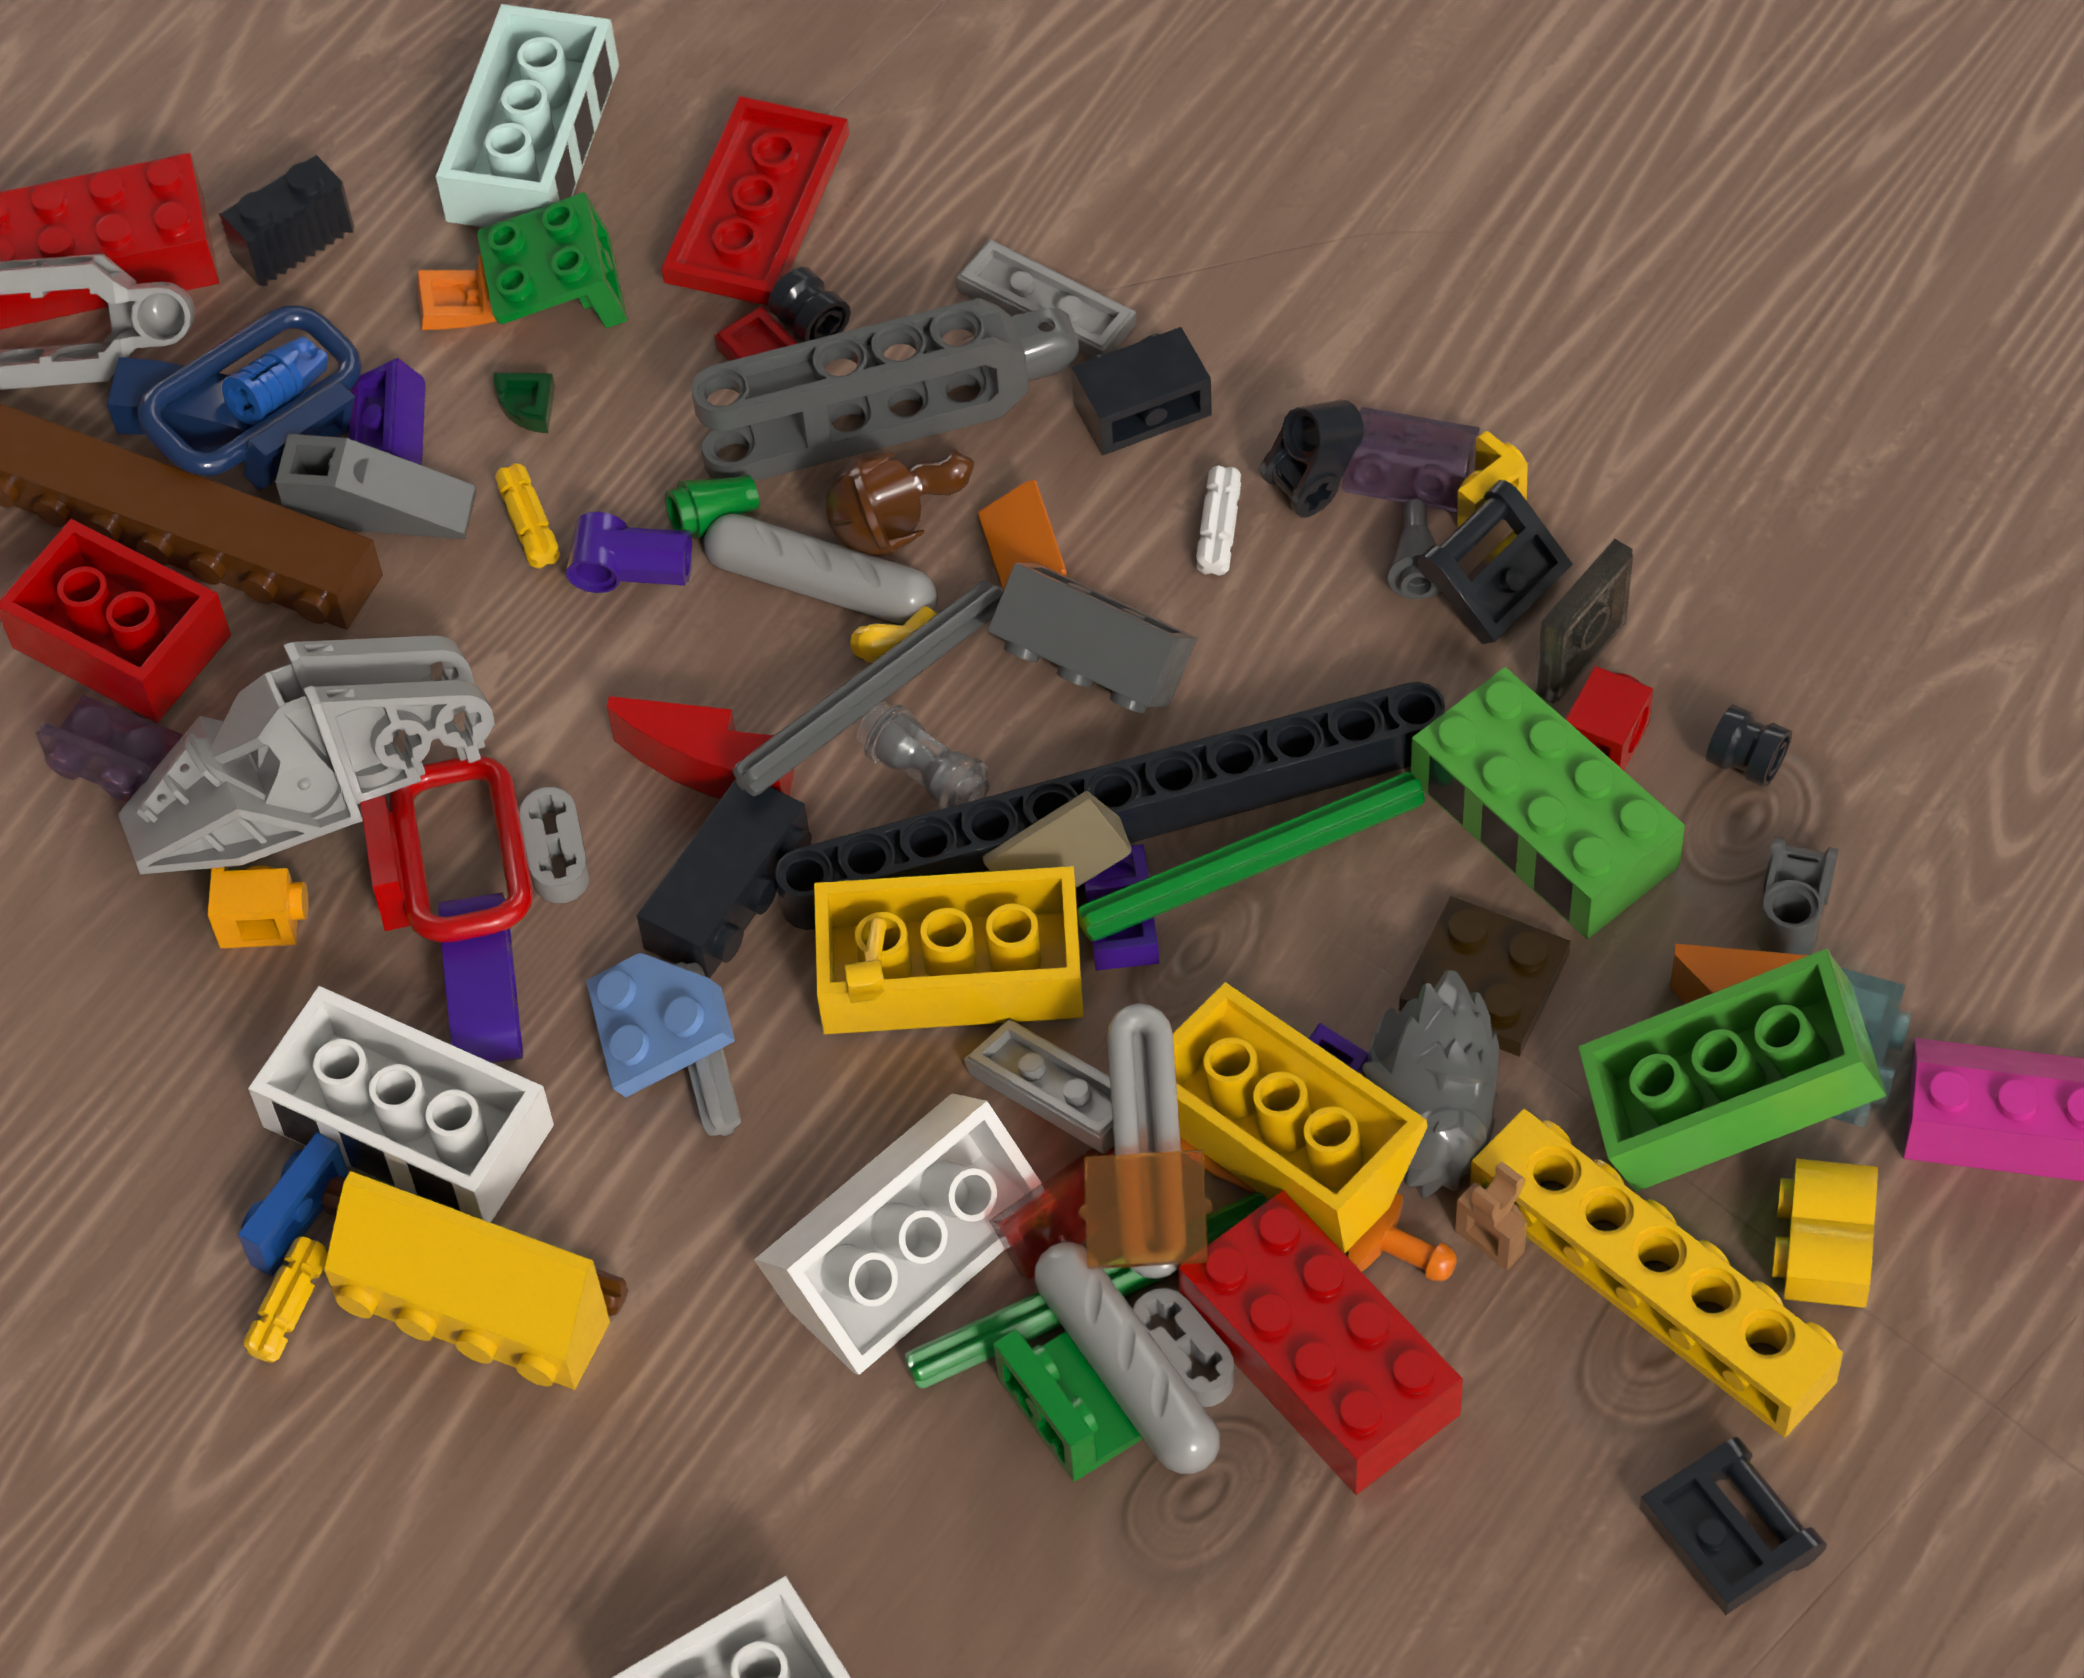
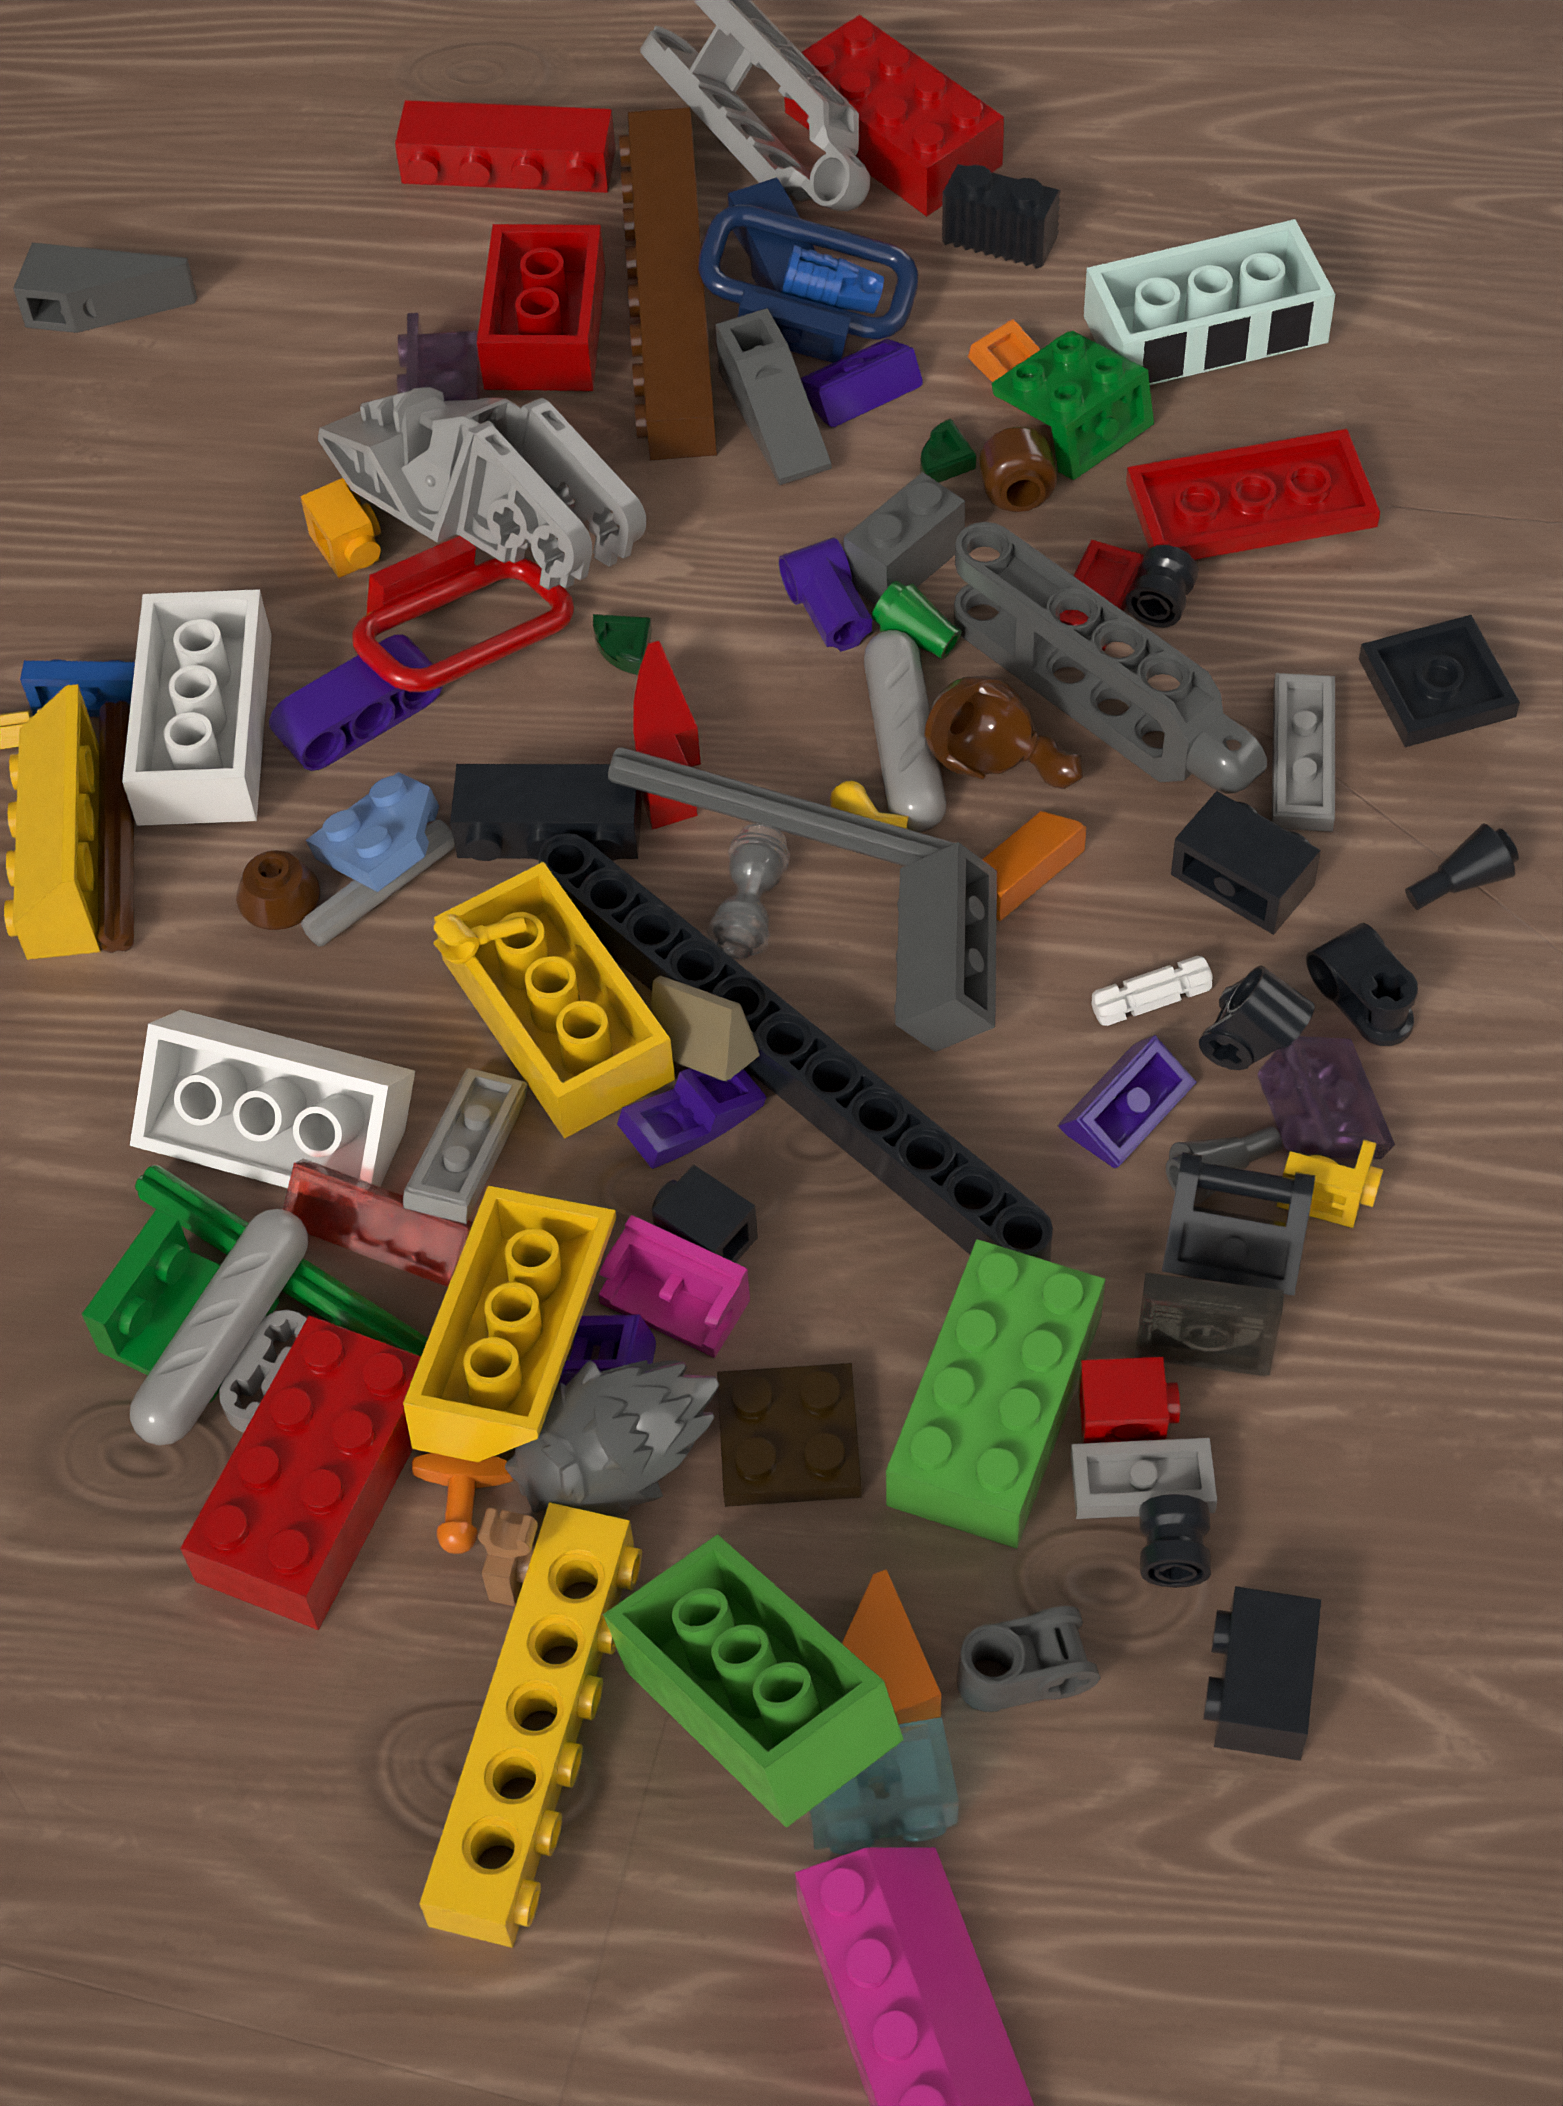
camera: 60 degrees right, 0 degrees up
(527, 515) = (827, 510): yellow axle -> none
(557, 740) = (622, 640): none -> dark green tile
(565, 842) = (521, 690): light grey beam -> none
(601, 347) = (1017, 469): none -> reddish brown head
(621, 462) = (905, 537): none -> dark grey brick
(655, 1137) = (277, 891): none -> reddish brown cone
(1046, 172) = (1438, 680): none -> black plate
(1143, 1090) = (413, 1225): light grey piece -> none
(1145, 1209) = (338, 1256): clear orange piece -> none
(1246, 236) = (1478, 861): none -> black cone
(1249, 941) = (706, 1214): none -> black brick
(1250, 856) = (798, 1184): green axle -> none
(1308, 980) = (674, 1286): none -> dark pink hinge
(1311, 367) = (1366, 984): none -> black piece
(1311, 591) = (1128, 1102): none -> dark purple slope
(1677, 742) = (1120, 1476): none -> light grey plate
(1714, 1535) = (276, 1902): black plate -> none
(1829, 1232) = (655, 1860): yellow brick -> none
(1896, 740) = (1266, 1673): none -> black brick

